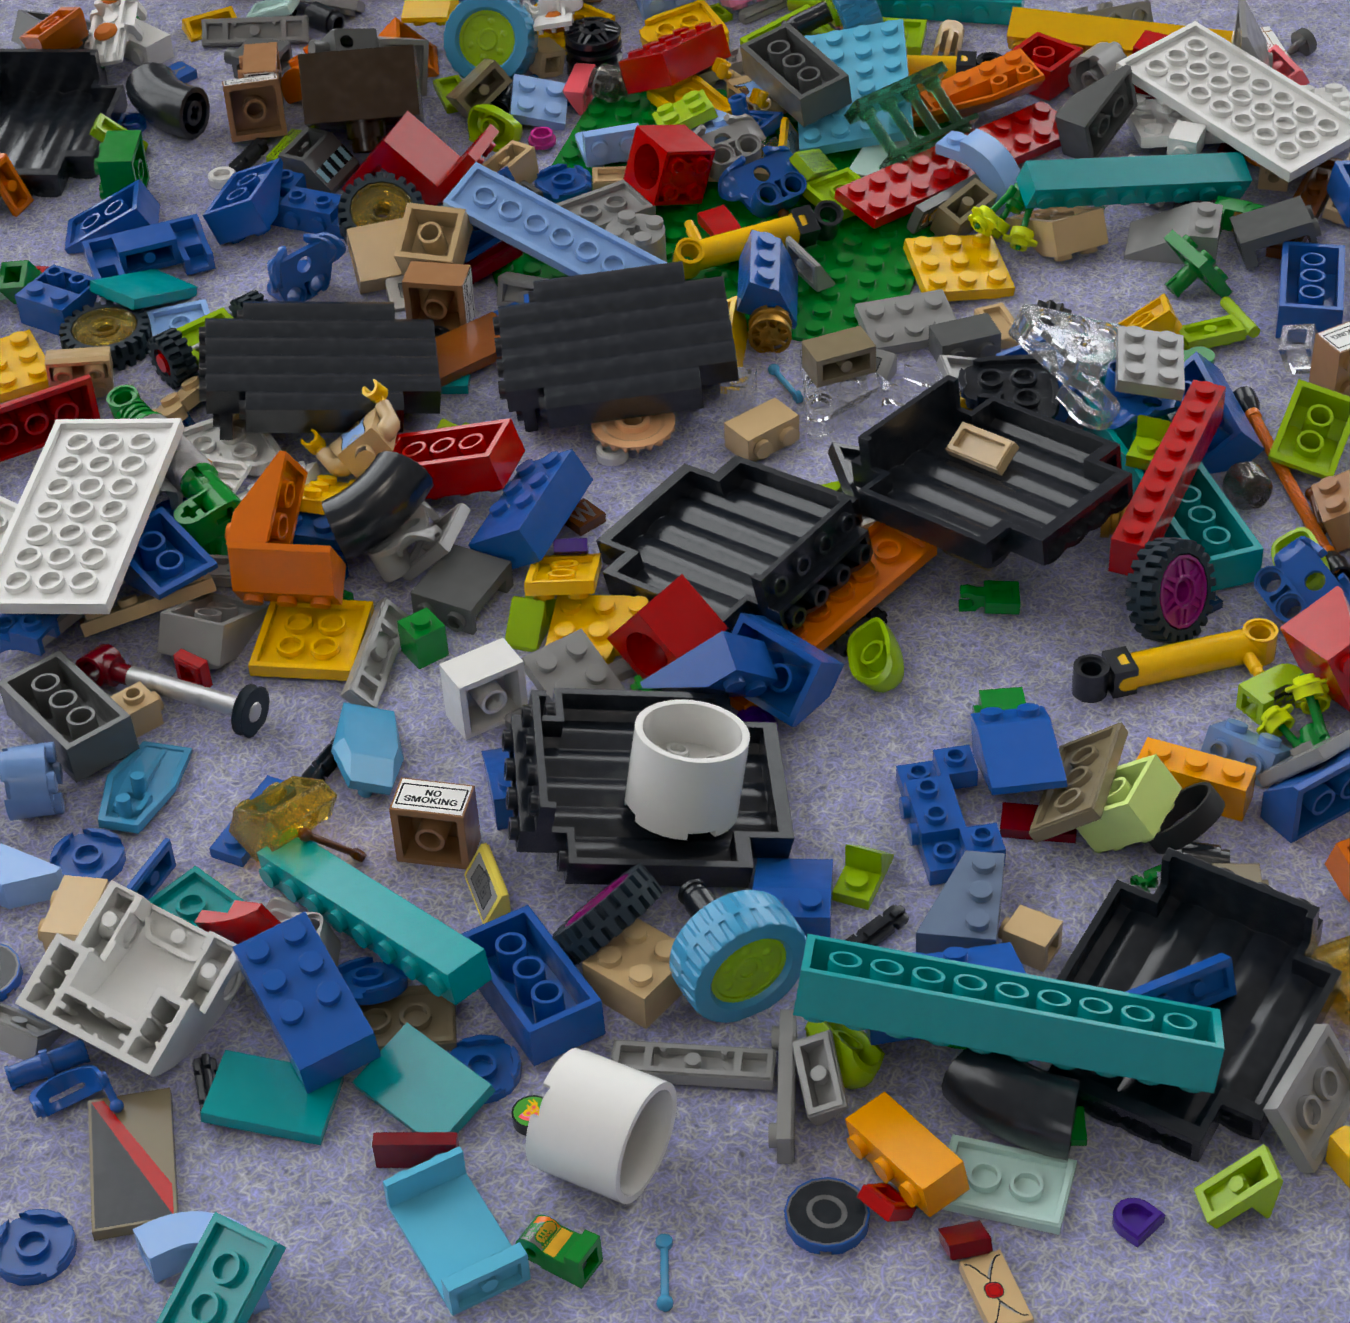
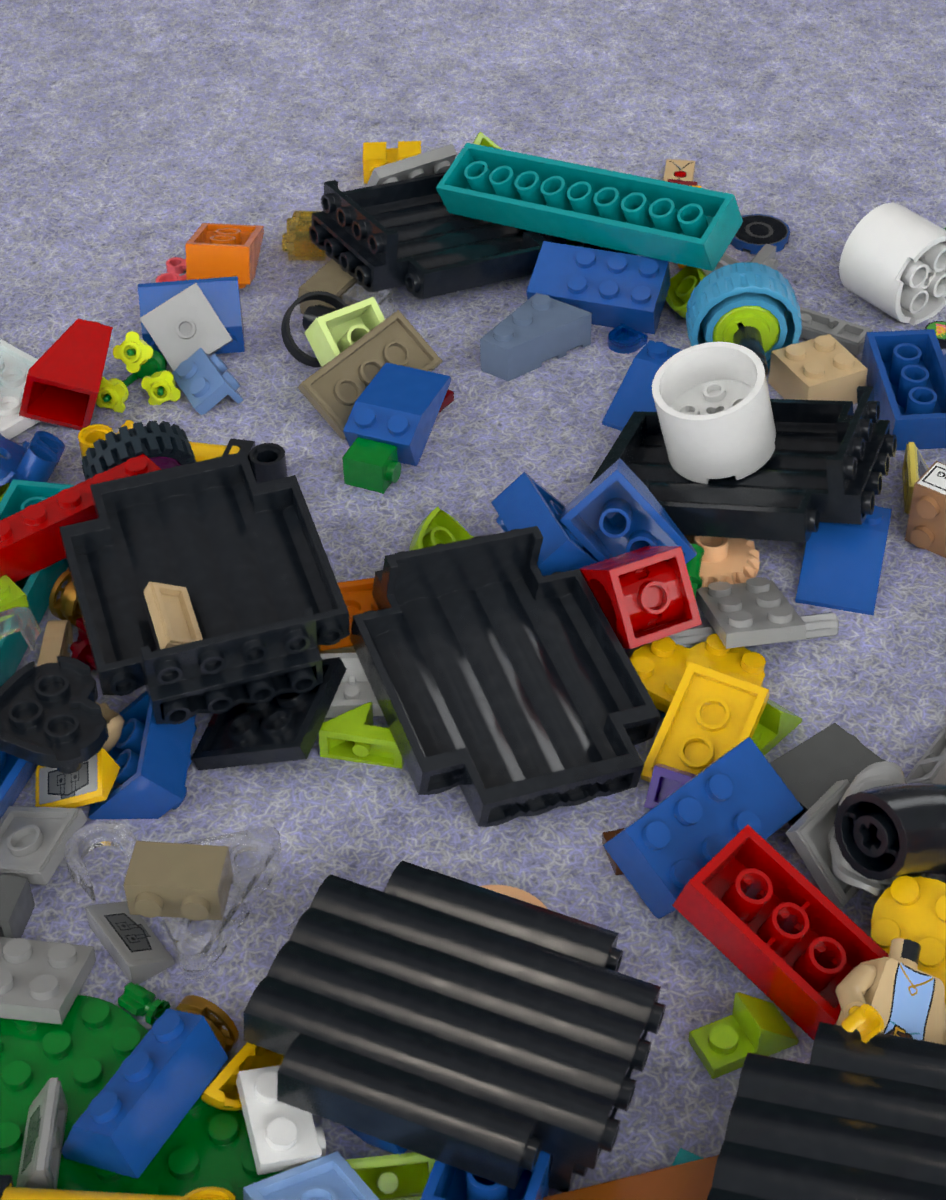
camera: 155 degrees left, 0 degrees up
(423, 638) = (898, 730): green brick -> none
(483, 687) = (856, 625): white brick -> none
(608, 913) = (832, 356): black wheel -> none
(762, 430) = (350, 856): tan brick -> none
(797, 396) = (235, 995): dark azure hinge -> none
(861, 875) = (583, 398): lime slope -> none
(881, 927) = (606, 360): black axle -> none
(935, 813) = (496, 413): blue bracket -> none
(1033, 936) = (493, 308): tan brick -> none
(1195, 984) = (445, 220): blue plate -> none
(1230, 778) = (271, 363): light orange brick -> none
(1267, 690) = (135, 407): lime leg -> none

